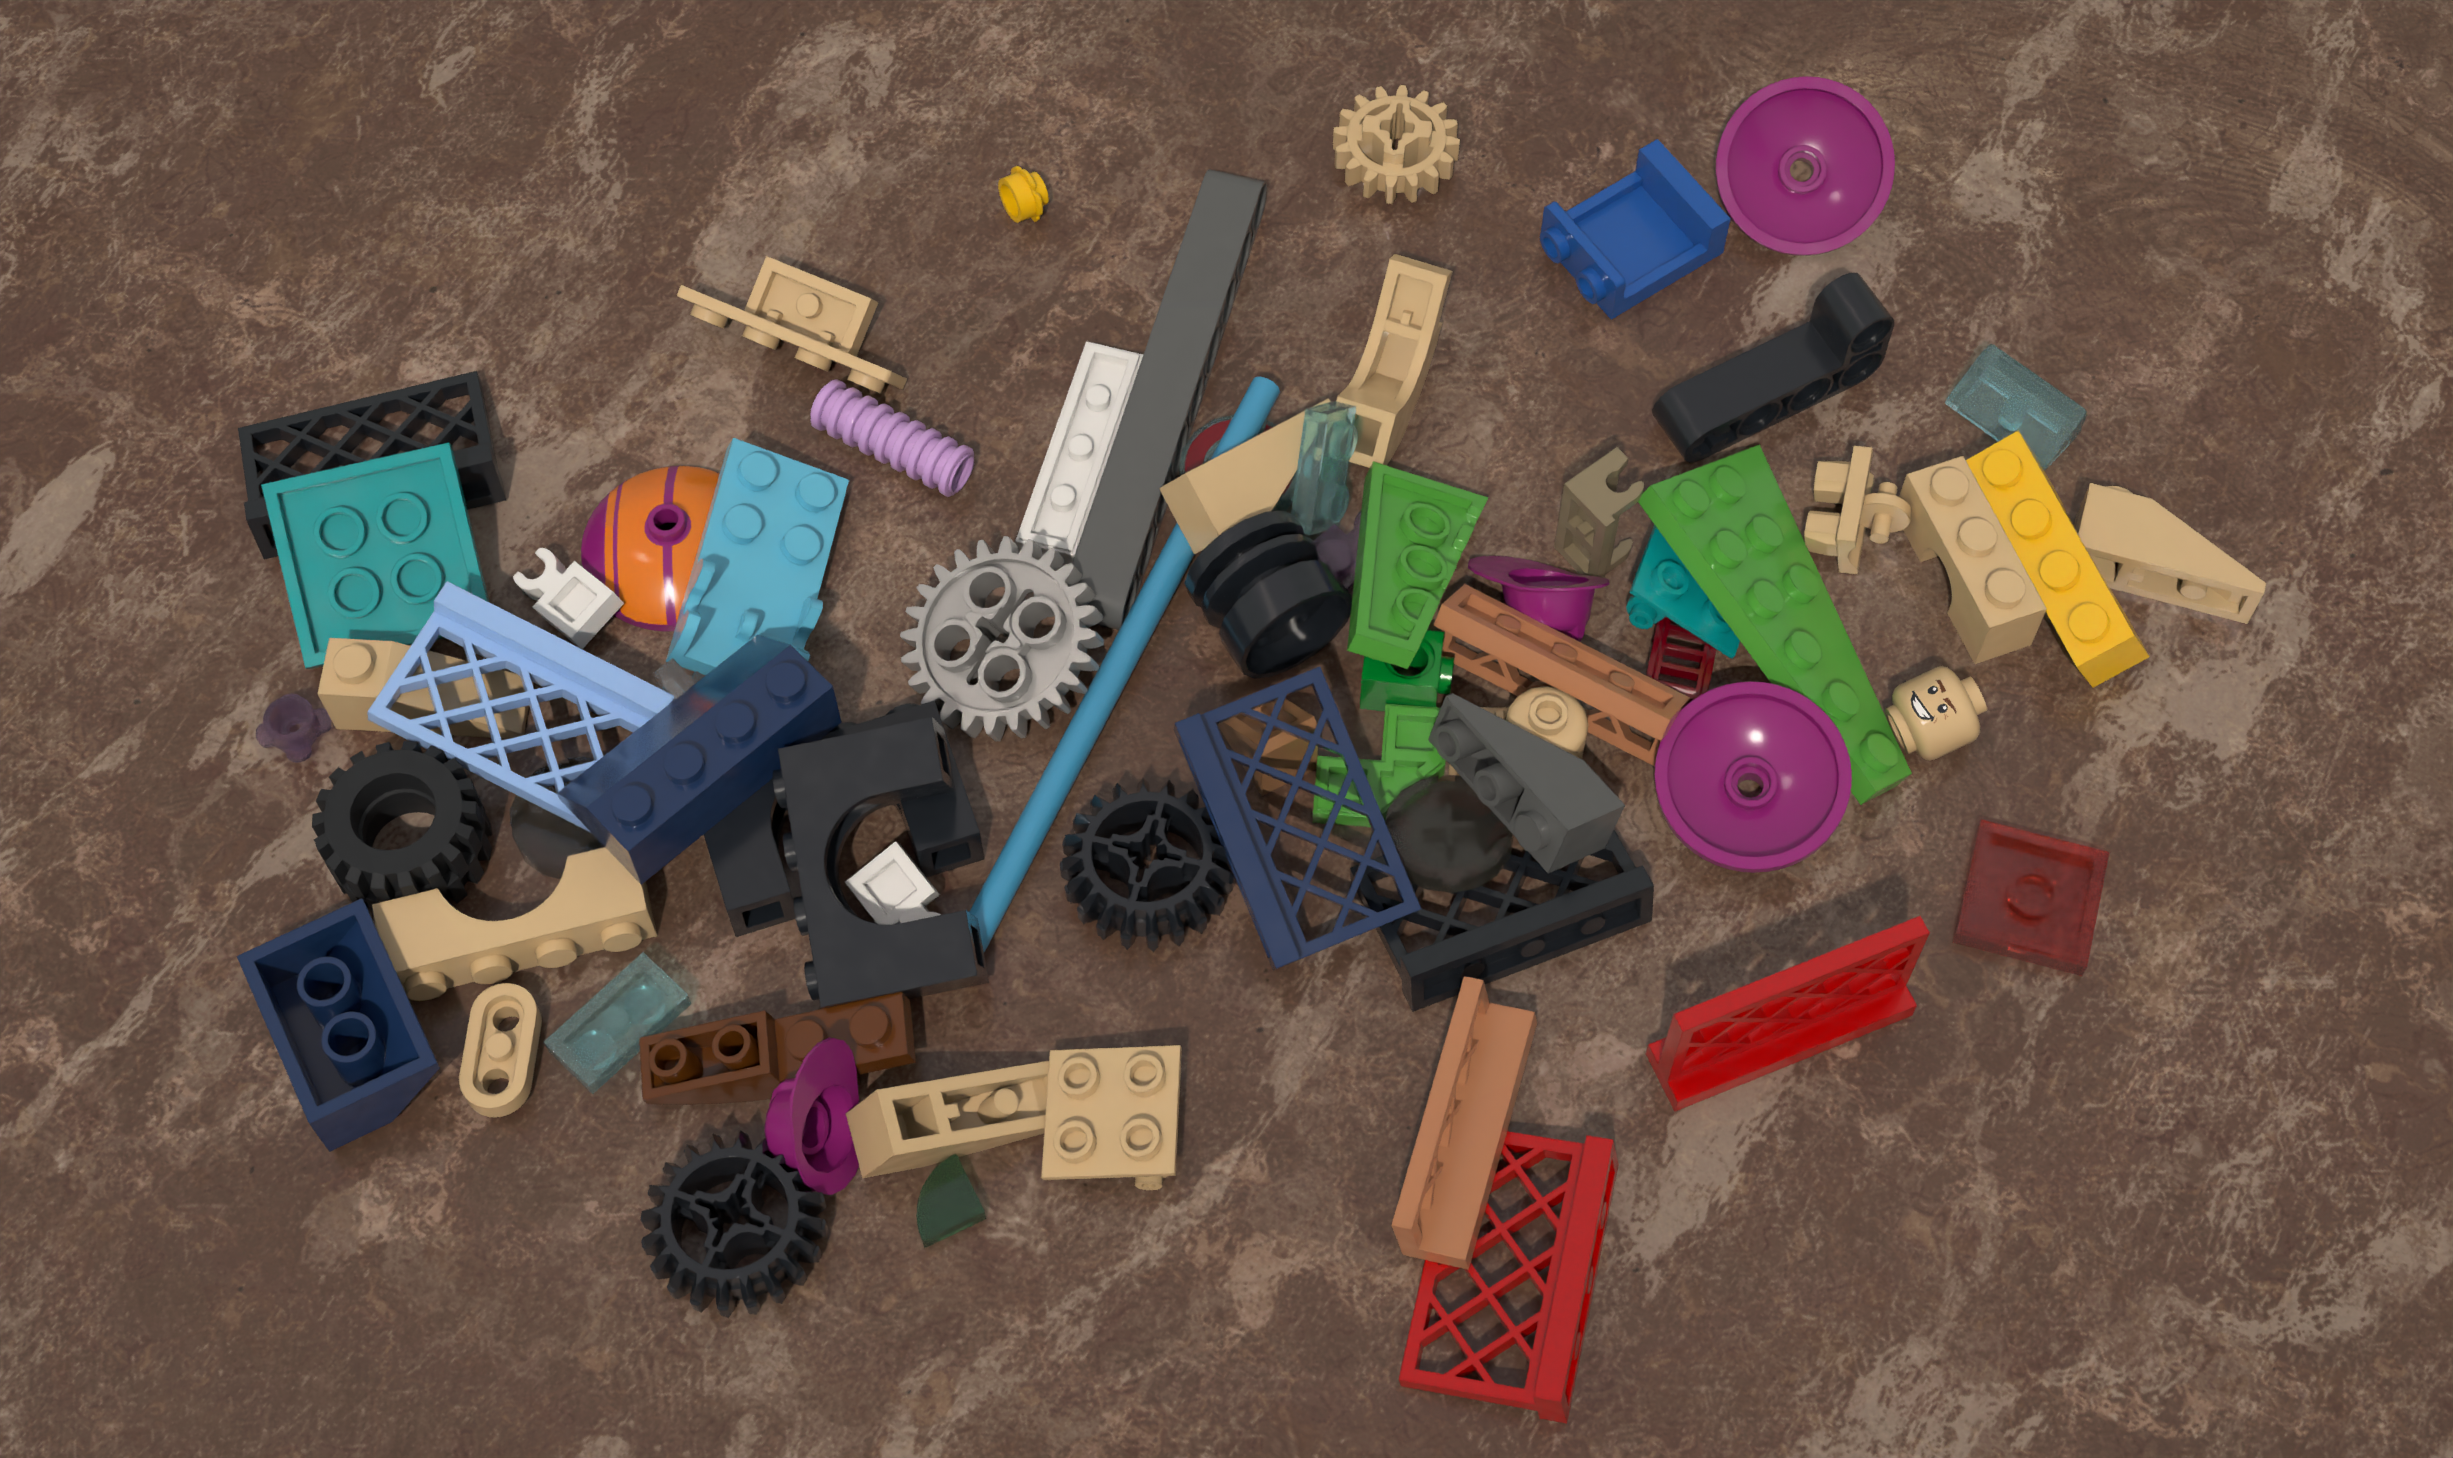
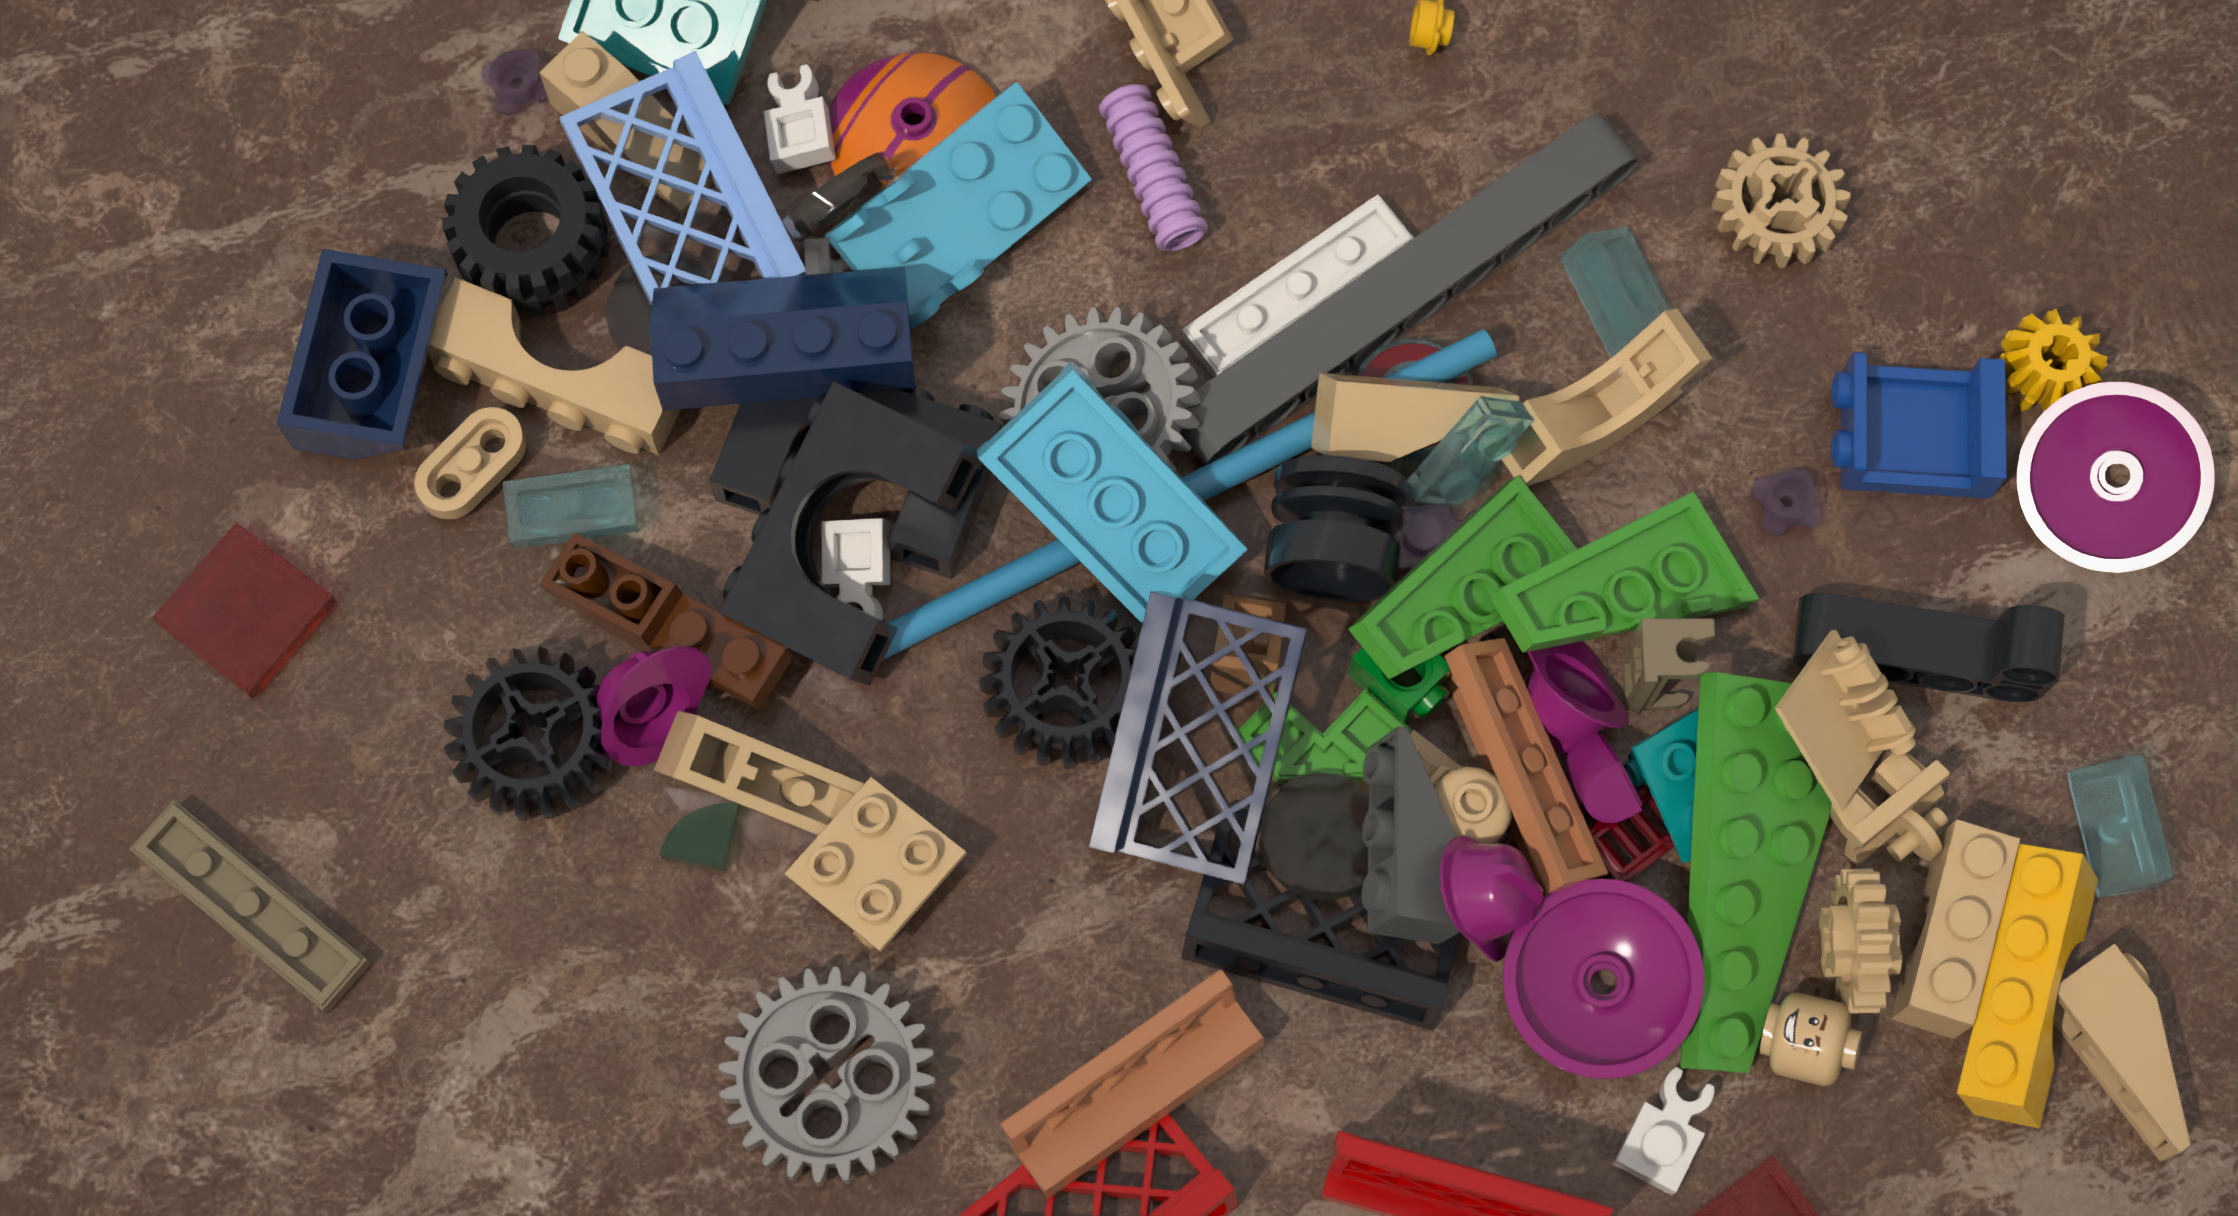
camera: 35 degrees right, 10 degrees up
(390, 1313) = (244, 610): none -> clear red tile
(657, 619) = (839, 196): none -> clear smoke tile
(1072, 689) = (1109, 495): none -> medium azure hinge
(1270, 1319) = (868, 1120): none -> light grey gear
(1324, 290) = (1614, 285): none -> clear light blue slope
(1518, 481) = (1651, 568): none -> bright green wing
(1582, 337) = (1792, 484): none -> clear purple plate
(1619, 765) = (1488, 892): none -> magenta piece
(1626, 634) = (1601, 780): none -> magenta brick
(1686, 121) = (2058, 343): none -> yellow gear
(1764, 456) = (1843, 716): none -> tan hinge
(1890, 872) = (1661, 1140): none -> white plate
(1914, 609) = (1860, 940): none -> tan gear

